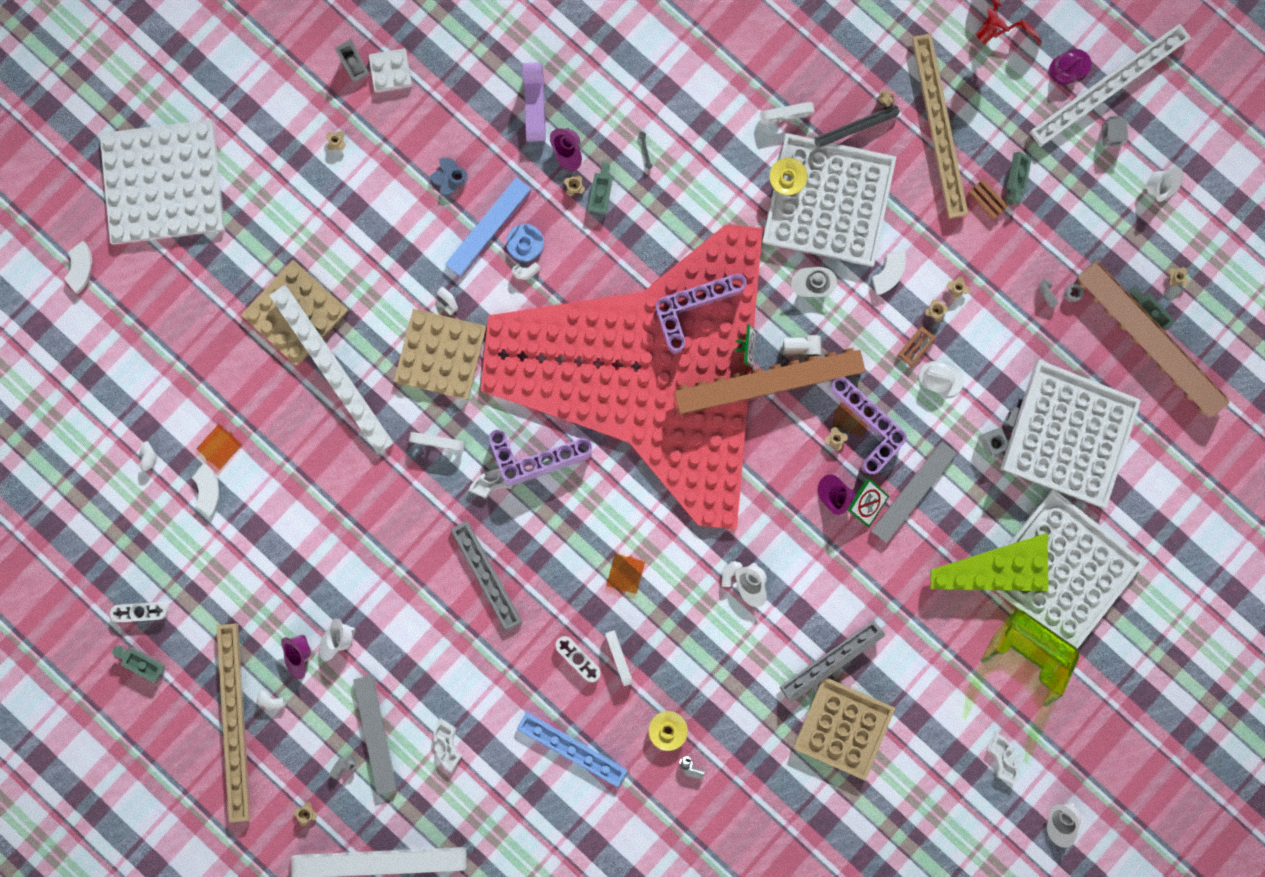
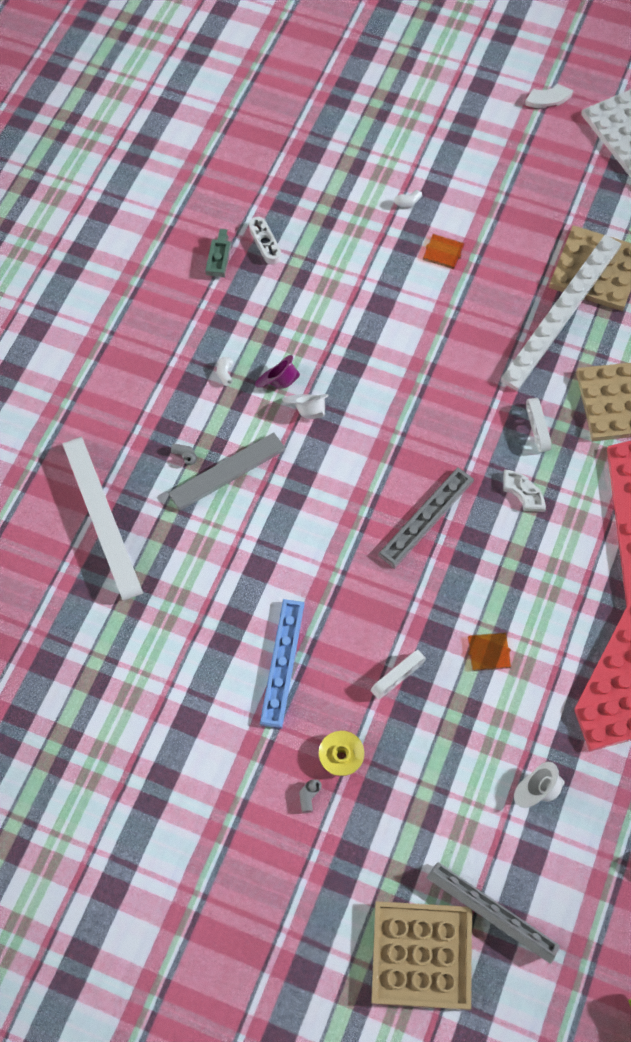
camera: 70 degrees right, 20 degrees down
(208, 489) = (399, 255): white tile -> none
(233, 723) = (192, 346): tan plate -> none
(299, 813) = (124, 432): tan plate -> none
(444, 745) = (239, 538): white tile -> none
(536, 460) = (564, 519): lavender beam -> none
(584, 673) = (367, 646): white beam -> none
(728, 572) = (536, 757): white arm -> none

